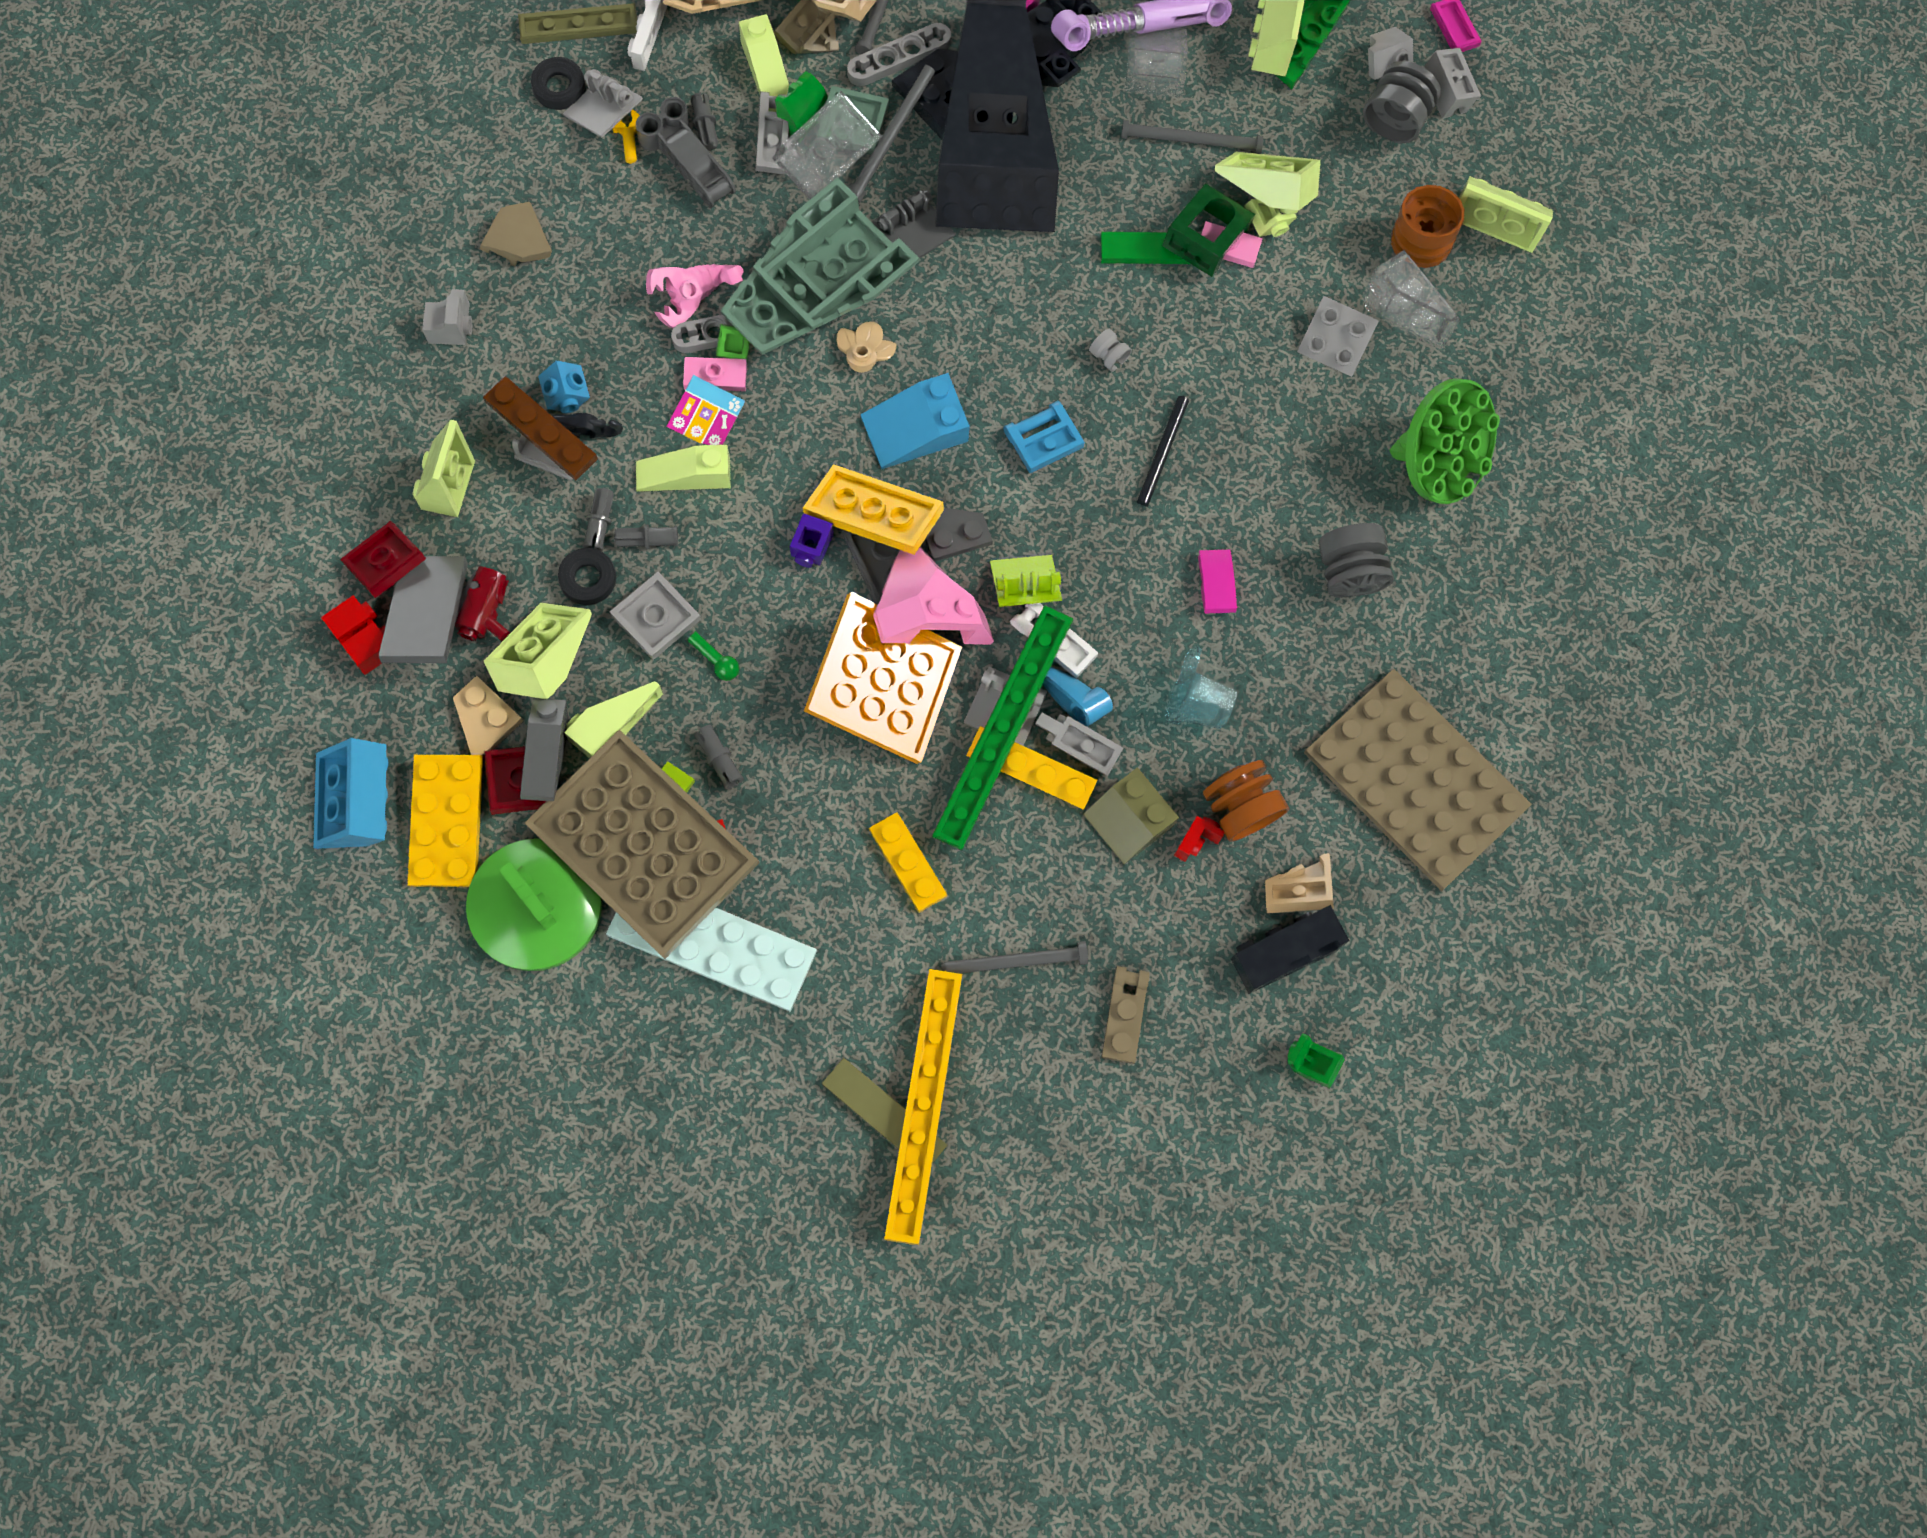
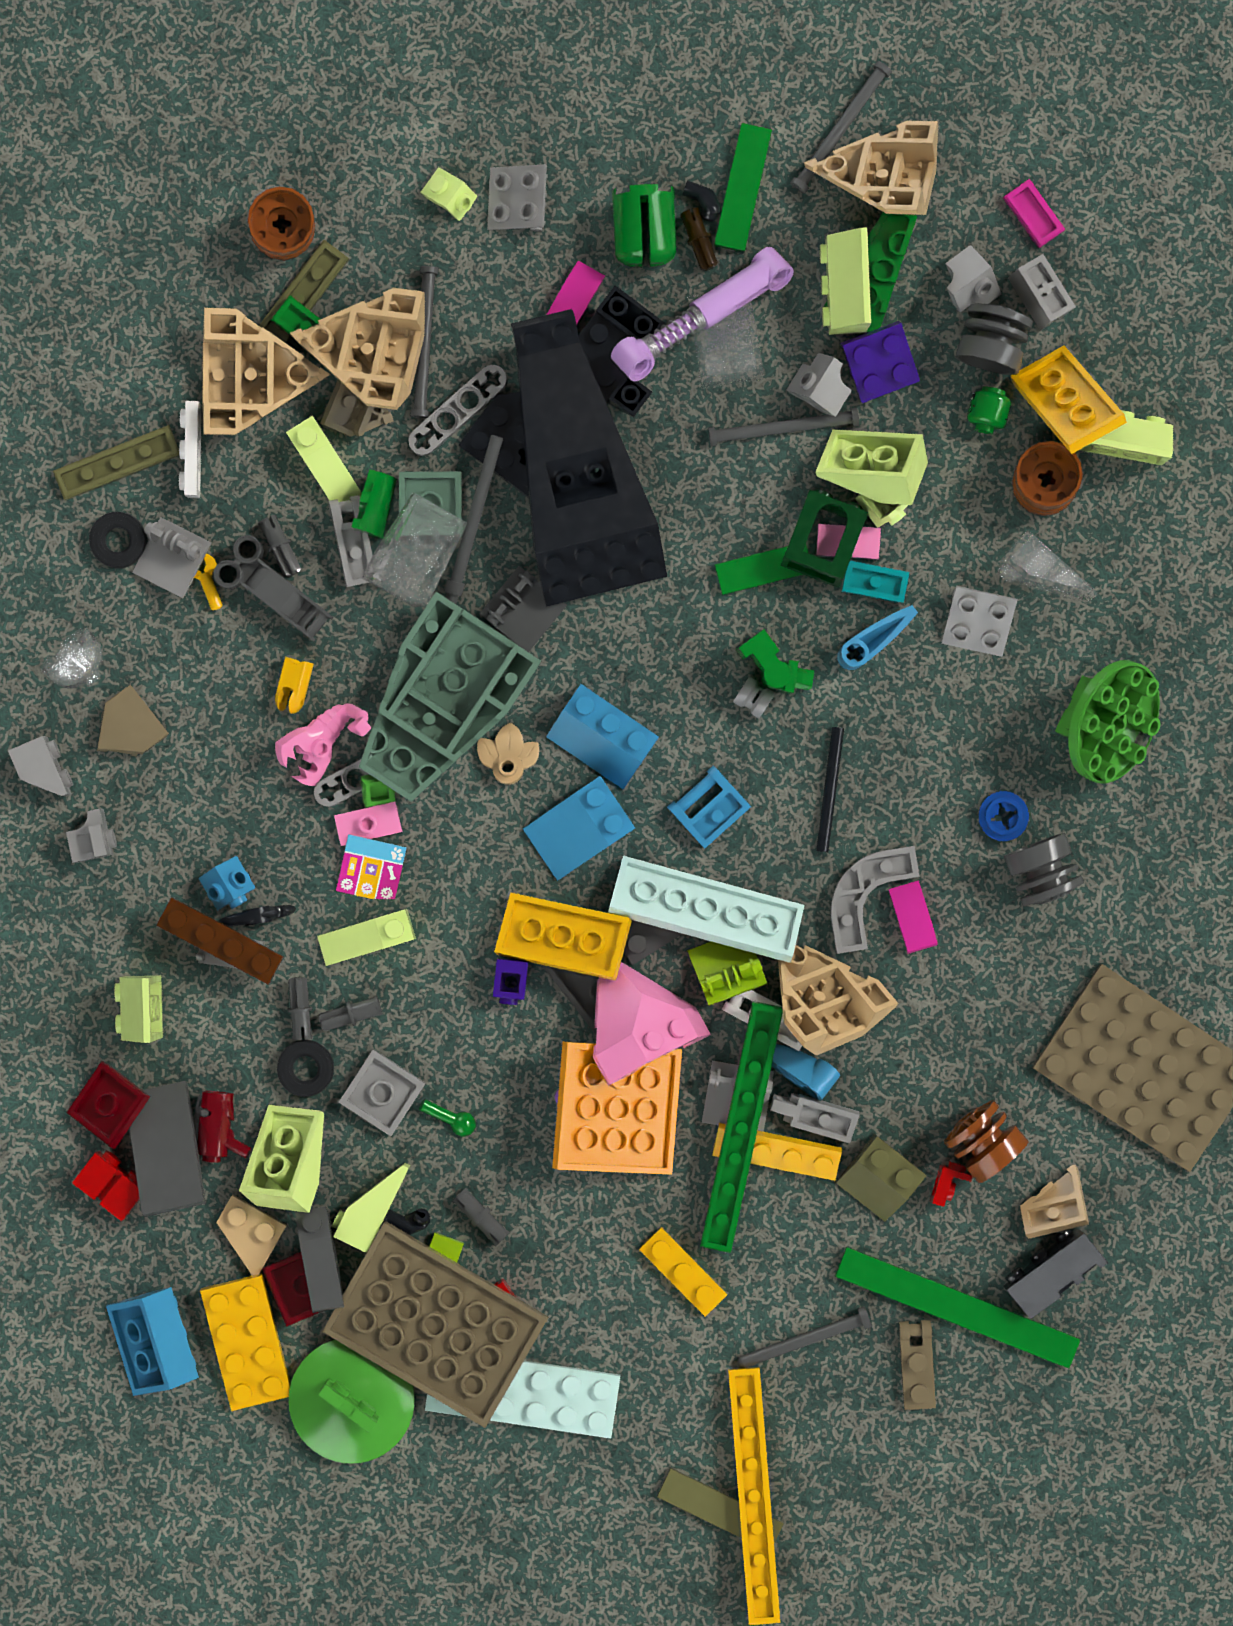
camera: 10 degrees left, 15 degrees up
(420, 246) = (38, 765): none -> light grey slope
(484, 165) = (76, 661): none -> clear cylinder
(651, 746) = (409, 1223): none -> black arm
(681, 236) = (295, 678): none -> yellow piece
(960, 344) = (602, 736): none -> dark azure slope
(1019, 521) = (706, 909): none -> light aqua plate
(1116, 633) = (827, 1002): none -> tan wedge
(1137, 323) = (775, 673): none -> green hips
(1171, 537) = (854, 888): none -> light grey plate
(1180, 967) = (957, 1307): none -> green tile
(1198, 698) = (918, 1050): clear light blue container -> none
(1232, 324) = (875, 638): none -> dark azure piece
(1235, 106) = (821, 385): none -> light grey brick
(1247, 281) = (875, 582): none -> teal plate
(1292, 102) = (880, 362): none -> dark purple plate
(1314, 1061) = (1099, 1367): green bracket -> none
(1332, 502) = (1016, 823): none -> blue gear
(1383, 165) = (989, 409): none -> green head
(1462, 160) = (1068, 399): none -> yellow plate

